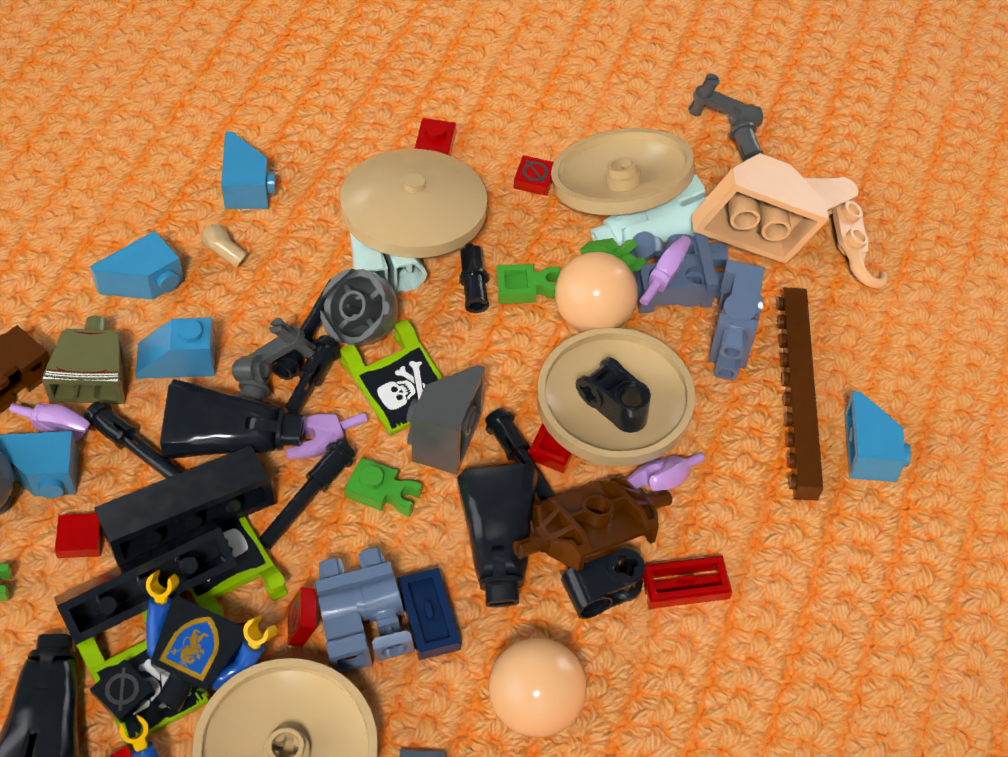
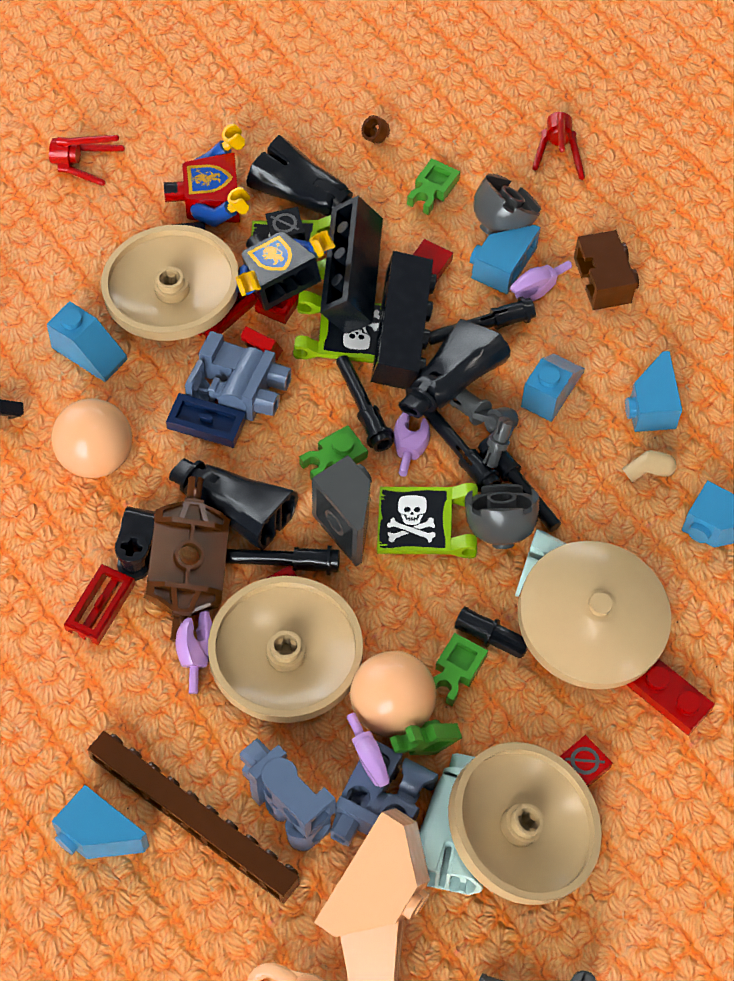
camera: 125 degrees right, 5 degrees up
(87, 365) = (577, 322): olive torso -> none
(616, 395) = (276, 626): black piece -> none

